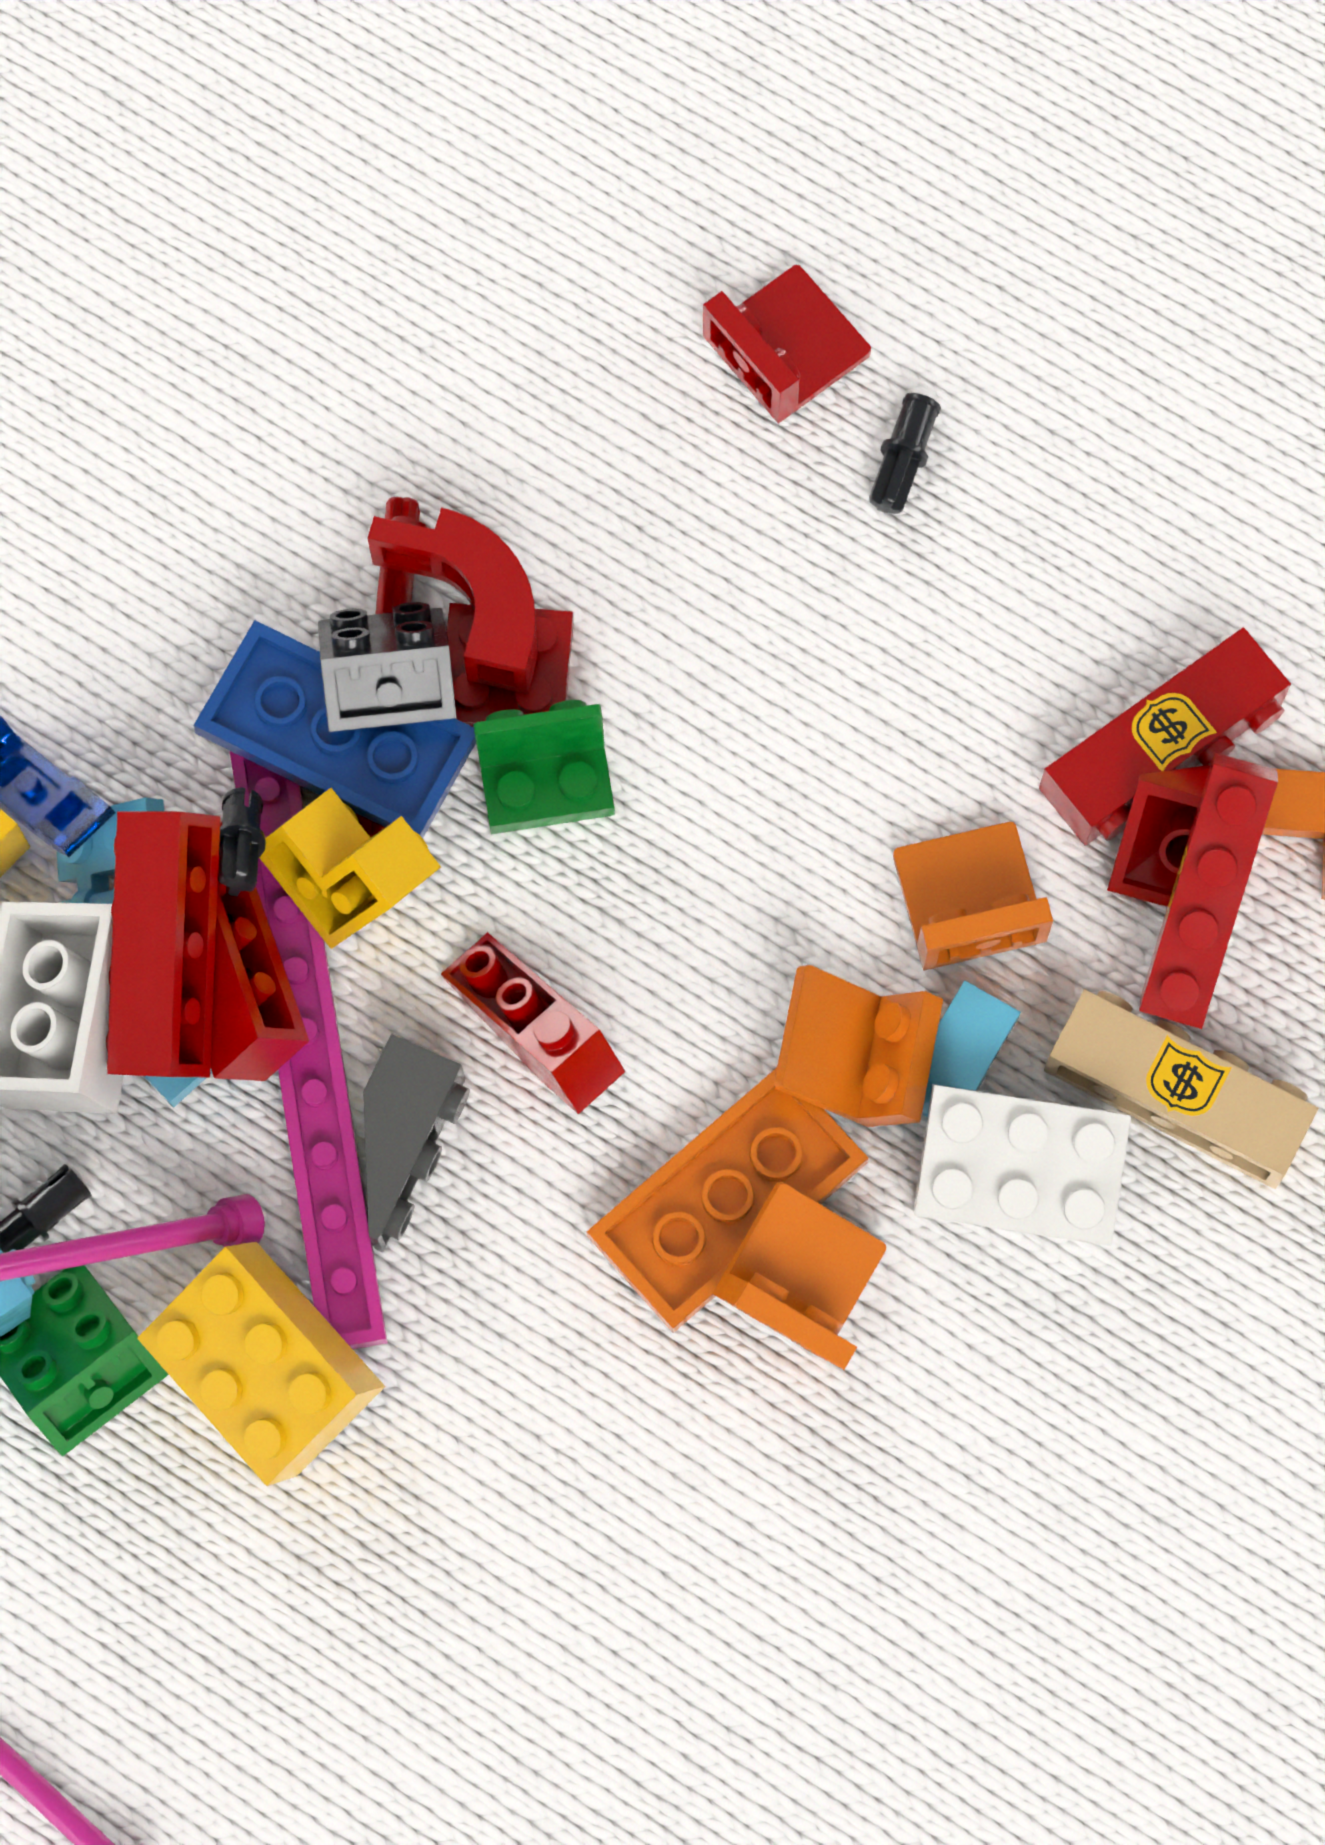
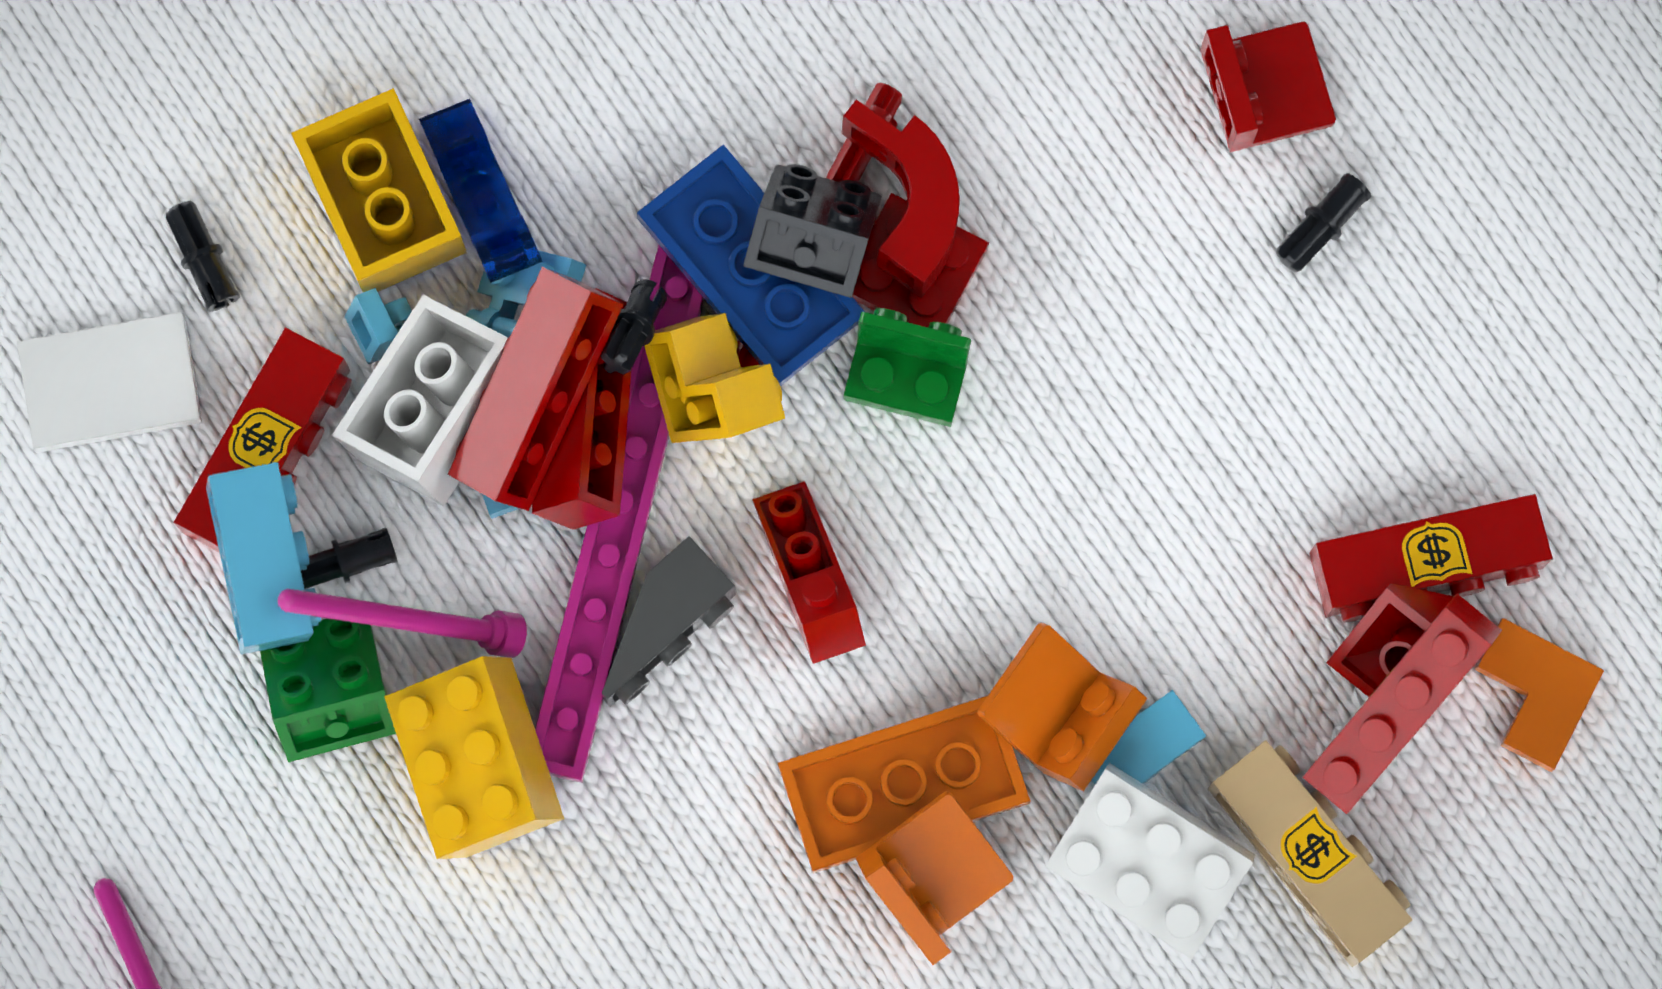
camera: 20 degrees right, 5 degrees up
(970, 896) = (1210, 619): orange bracket -> none

